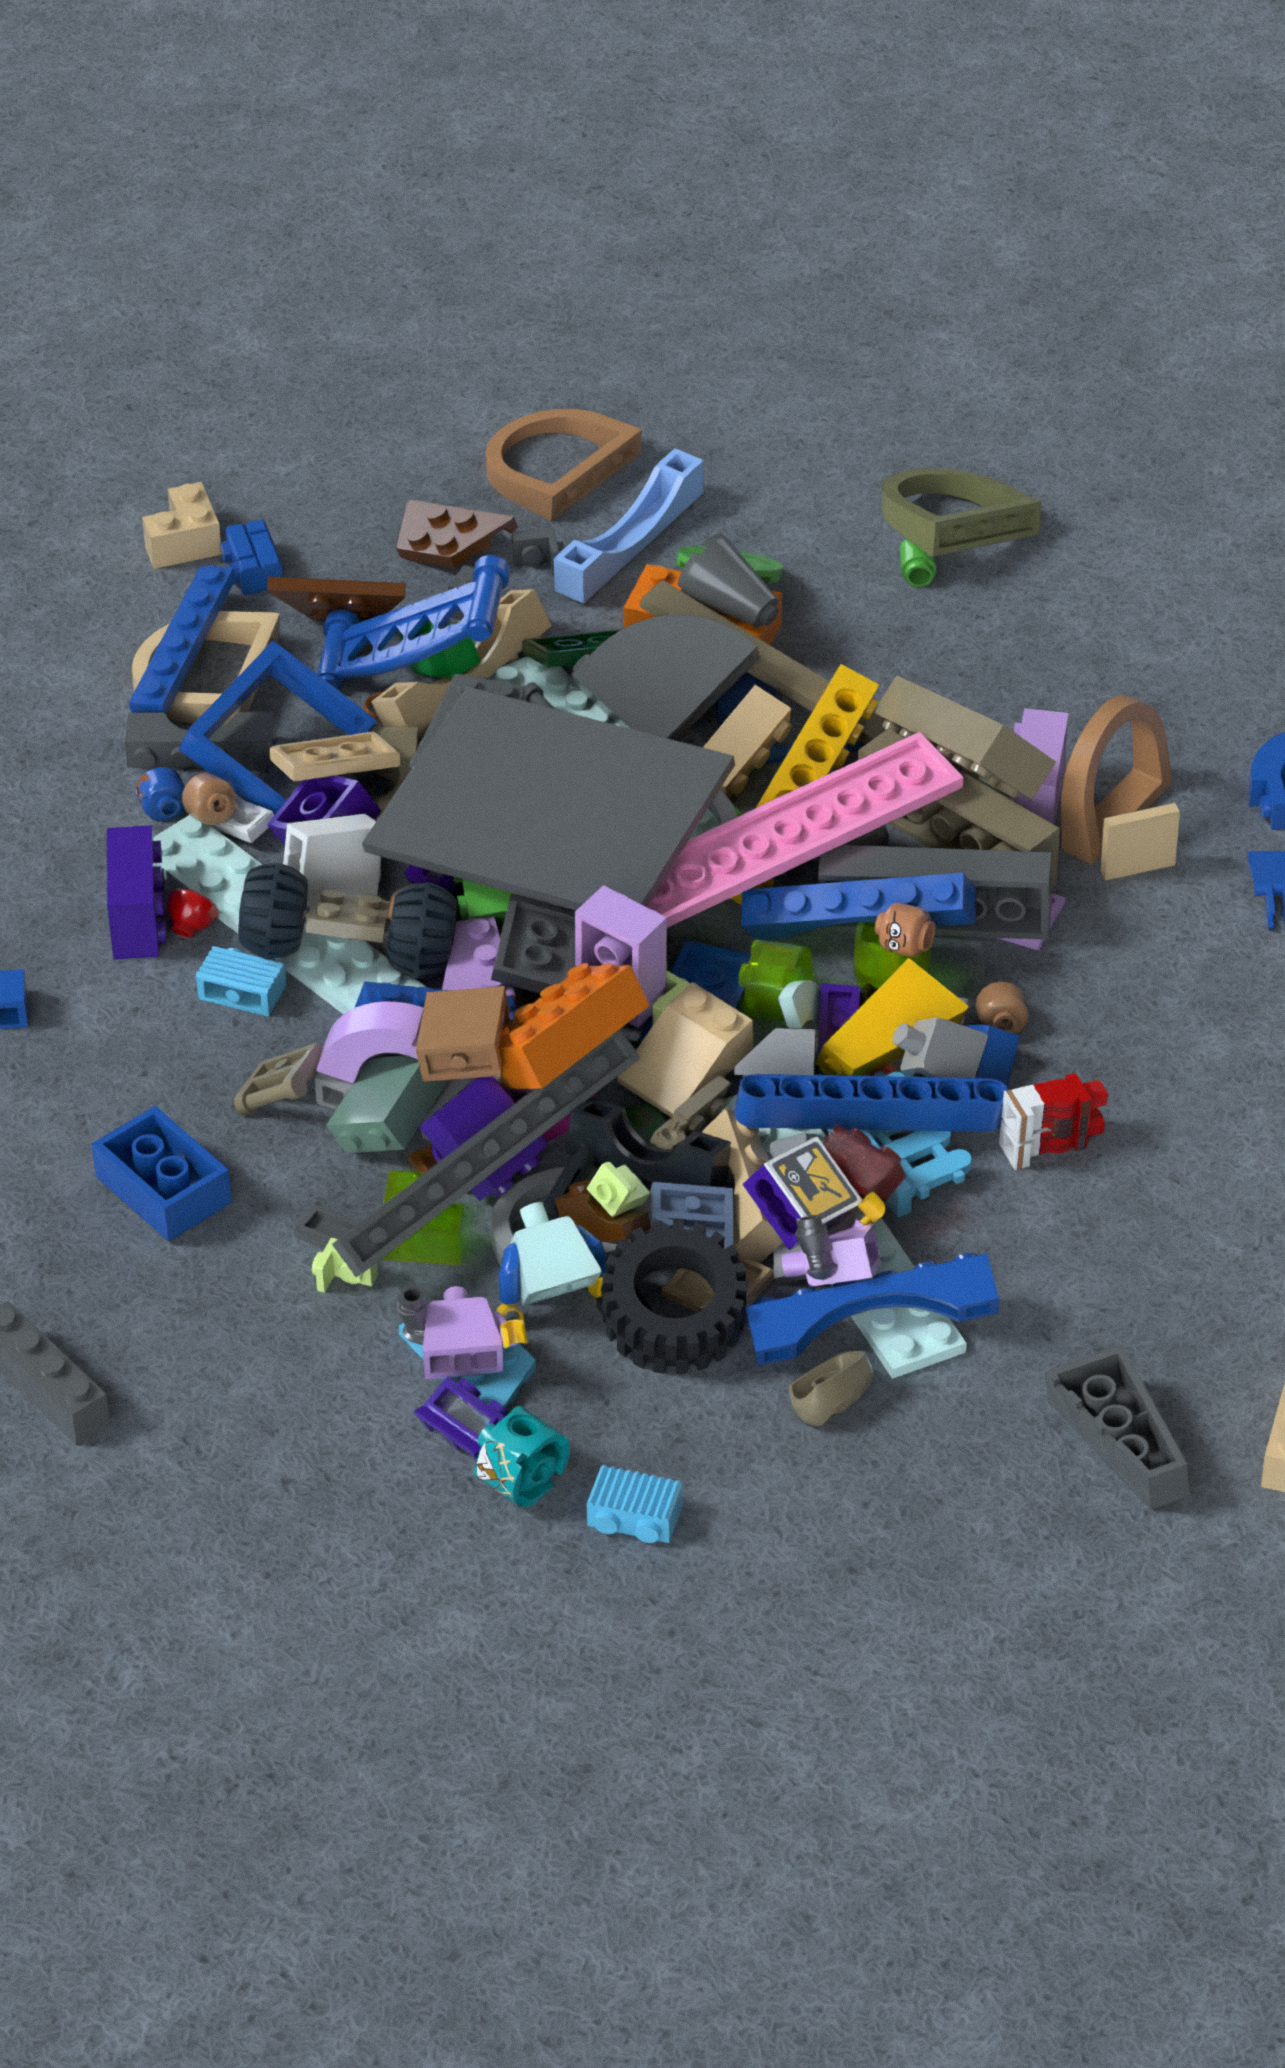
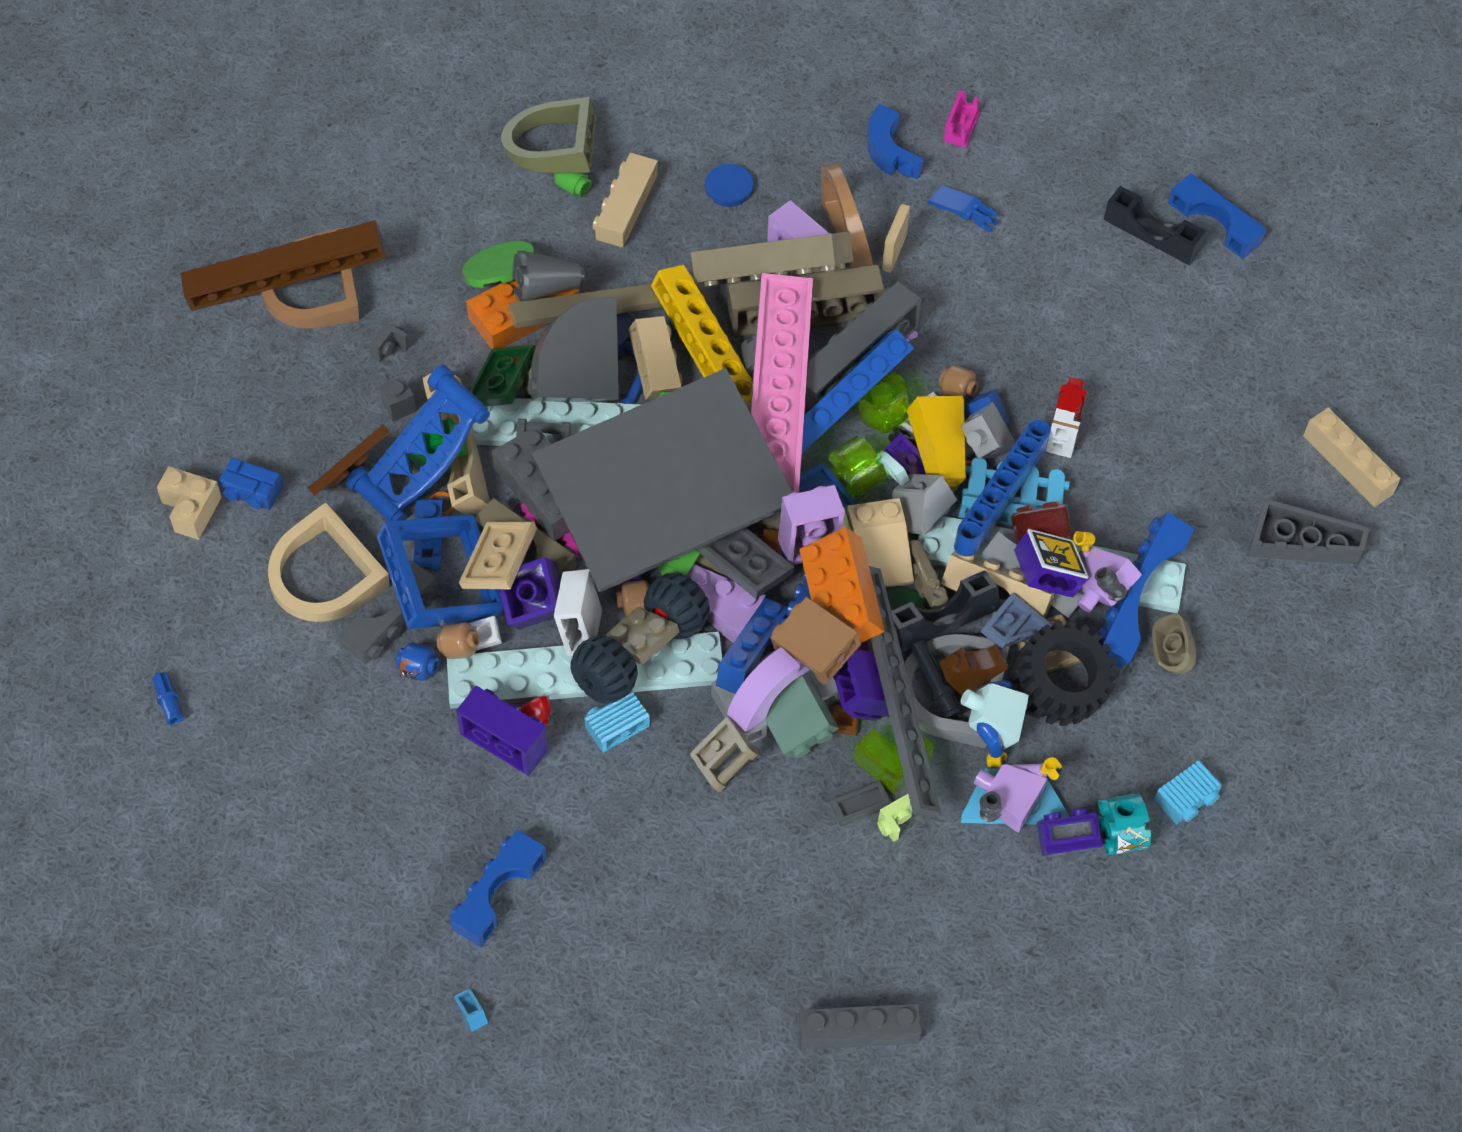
camera: 55 degrees left, 15 degrees up
(161, 1173) = (750, 863): blue brick -> none
(182, 640) = (298, 566): blue plate -> none
(320, 727) = (428, 509): none -> blue plate
(447, 533) = (330, 375): wing -> none
(542, 416) = (283, 265): none -> reddish brown brick
(591, 563) = (415, 287): light blue arch -> none
(617, 1189) = (975, 646): yellowish green bracket -> none
(905, 930) = (900, 383): nougat head -> none
(941, 614) = (625, 199): none -> tan brick
(1067, 684) = (729, 185): none -> blue tile

